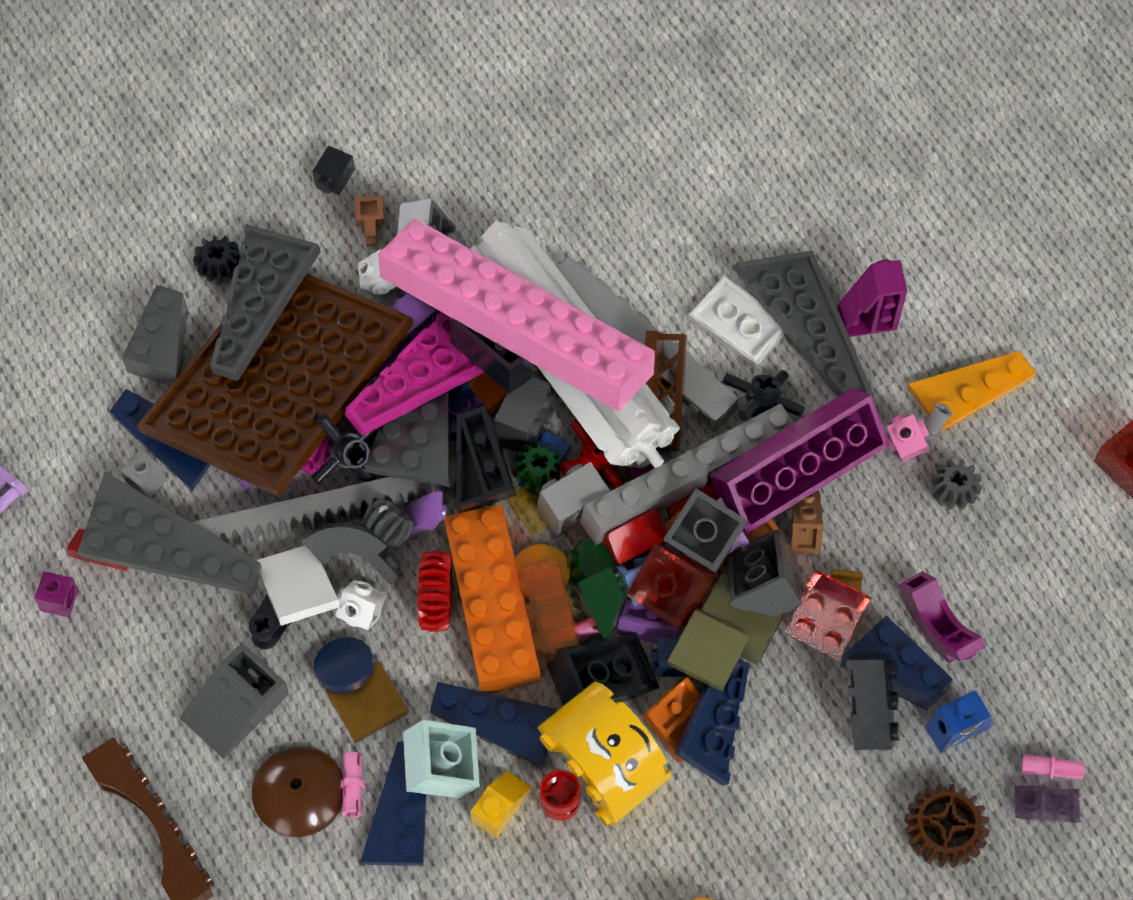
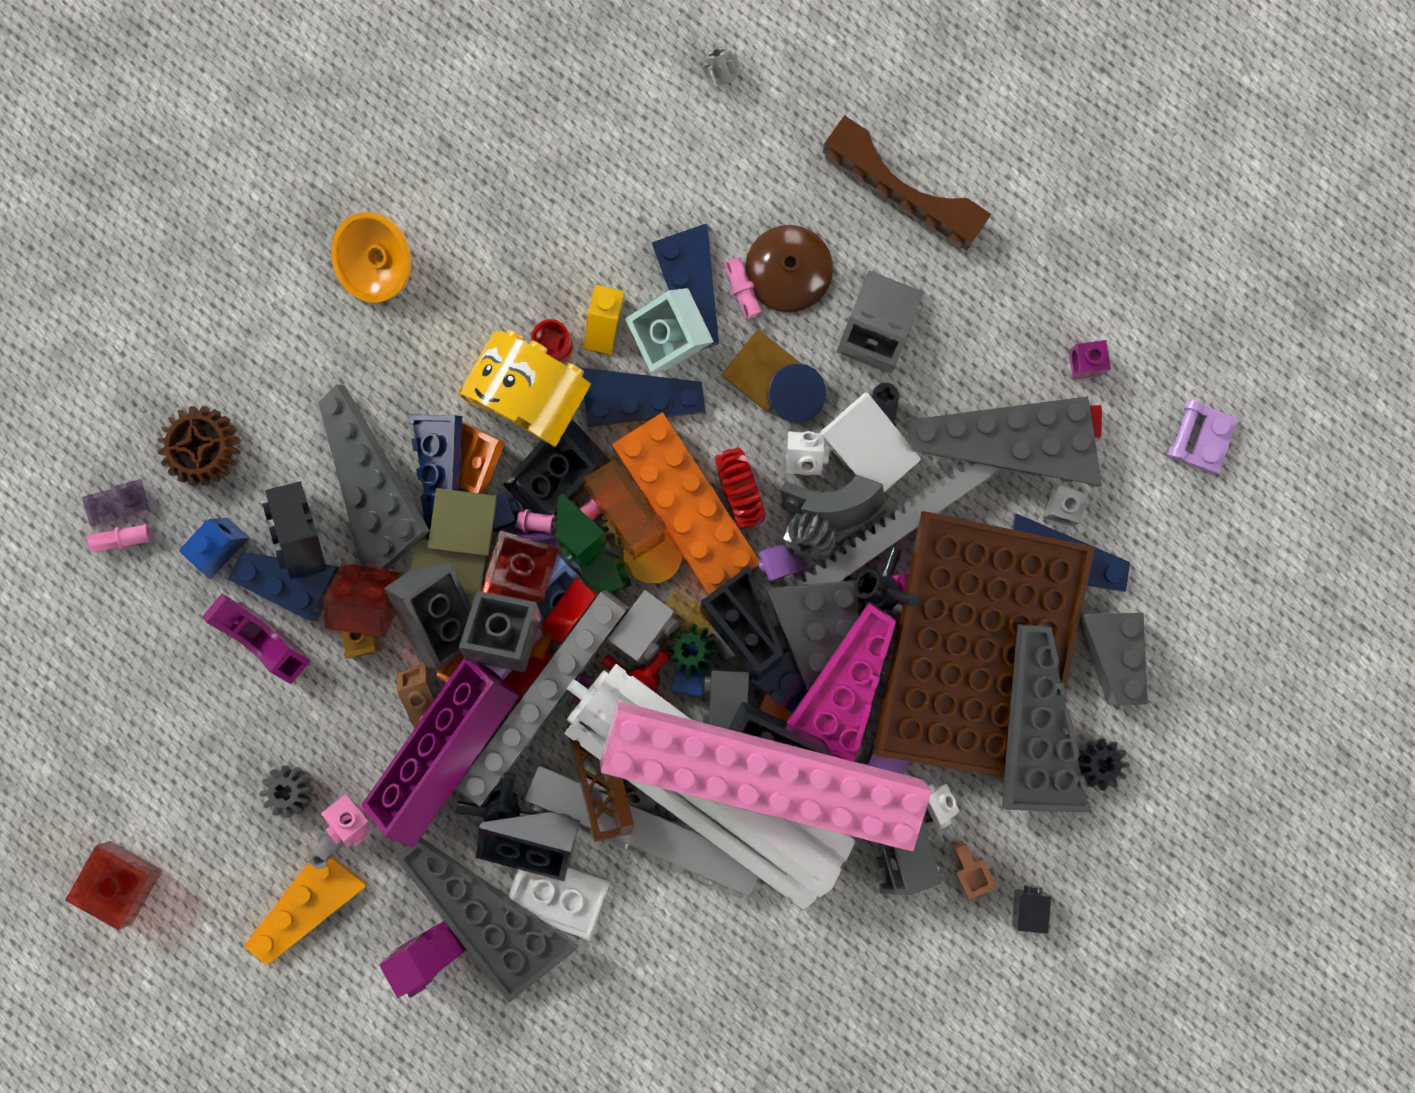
camera: 160 degrees right, 20 degrees up
(639, 633) = (536, 522): none -> bright pink pin
(735, 353) = (530, 843): none -> black slope
(787, 707) = (376, 502): none -> dark grey wing

